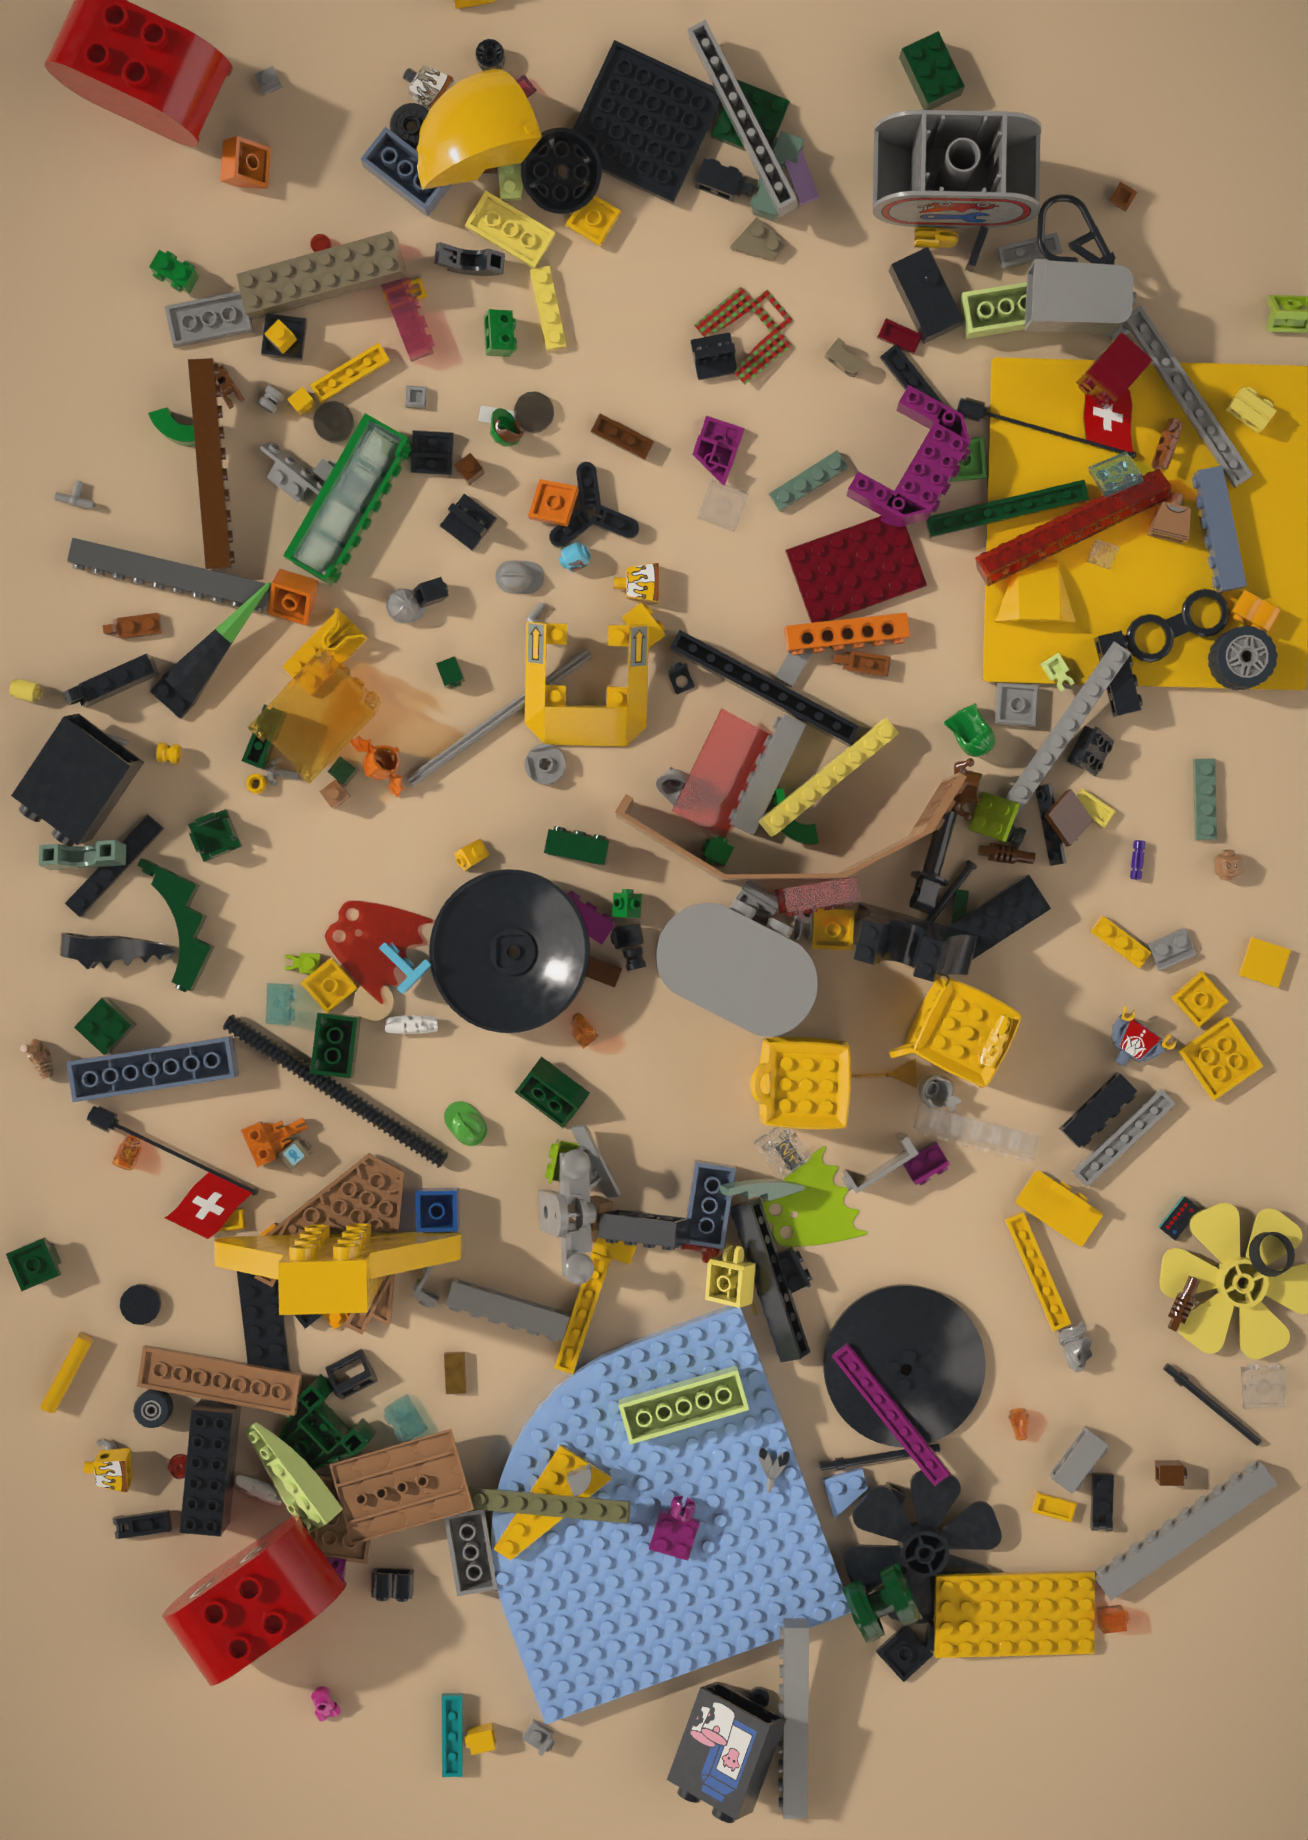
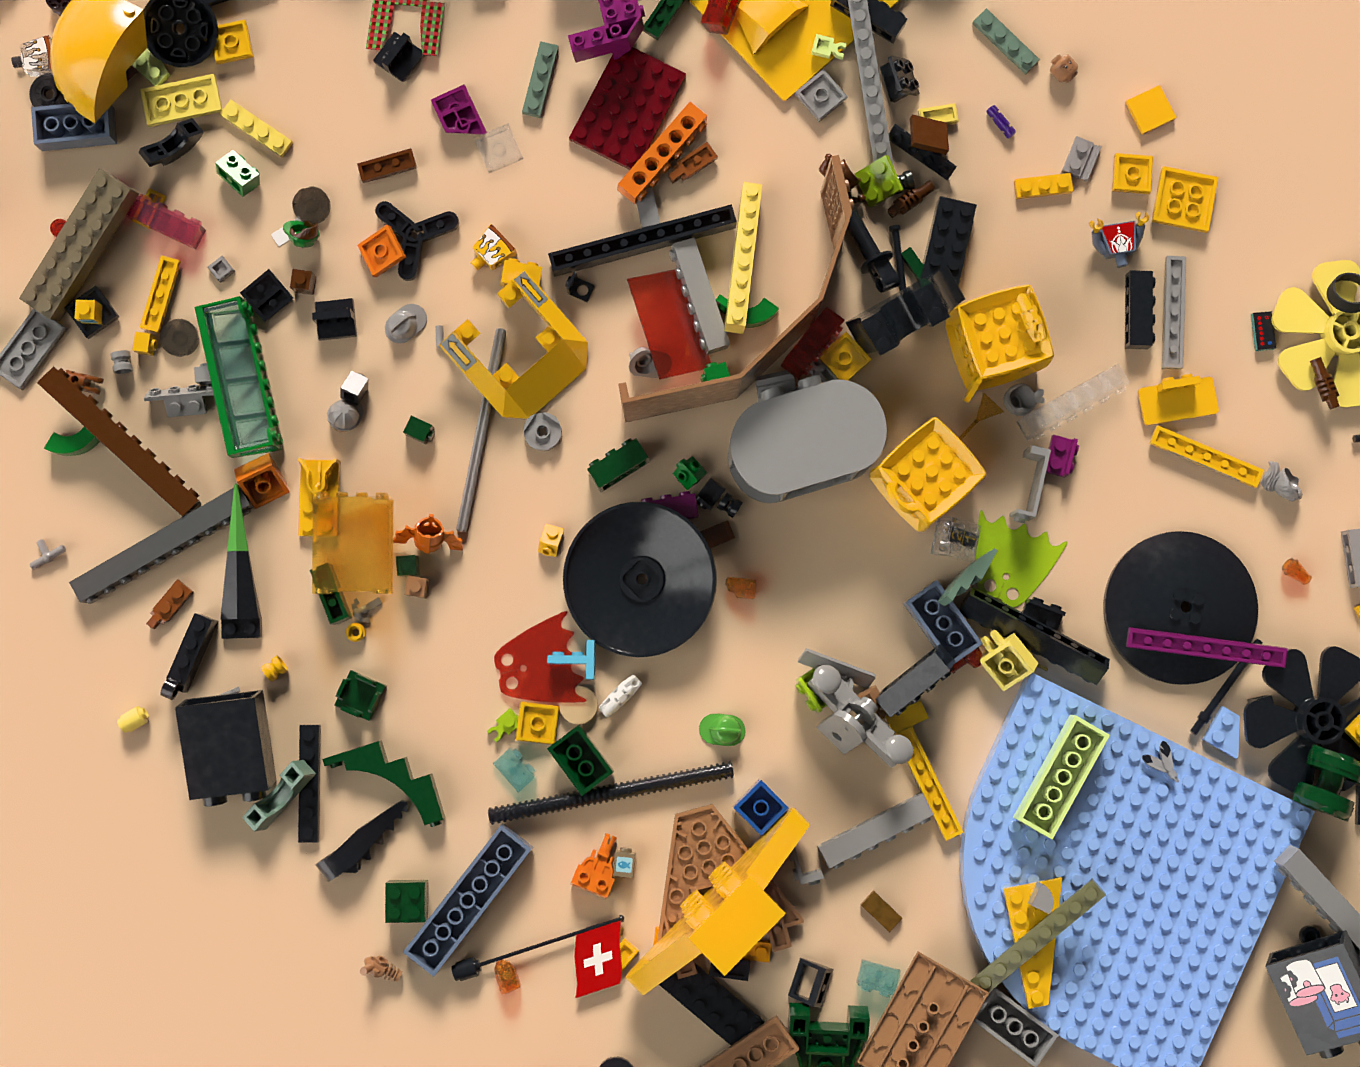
camera: 45 degrees left, 5 degrees down
(552, 1092) = (761, 650): dark green slope -> none
(575, 557) = (430, 273): medium azure head -> none
(675, 1529) = (1140, 870): magenta plate -> none
(971, 731) = (809, 139): green piece -> none

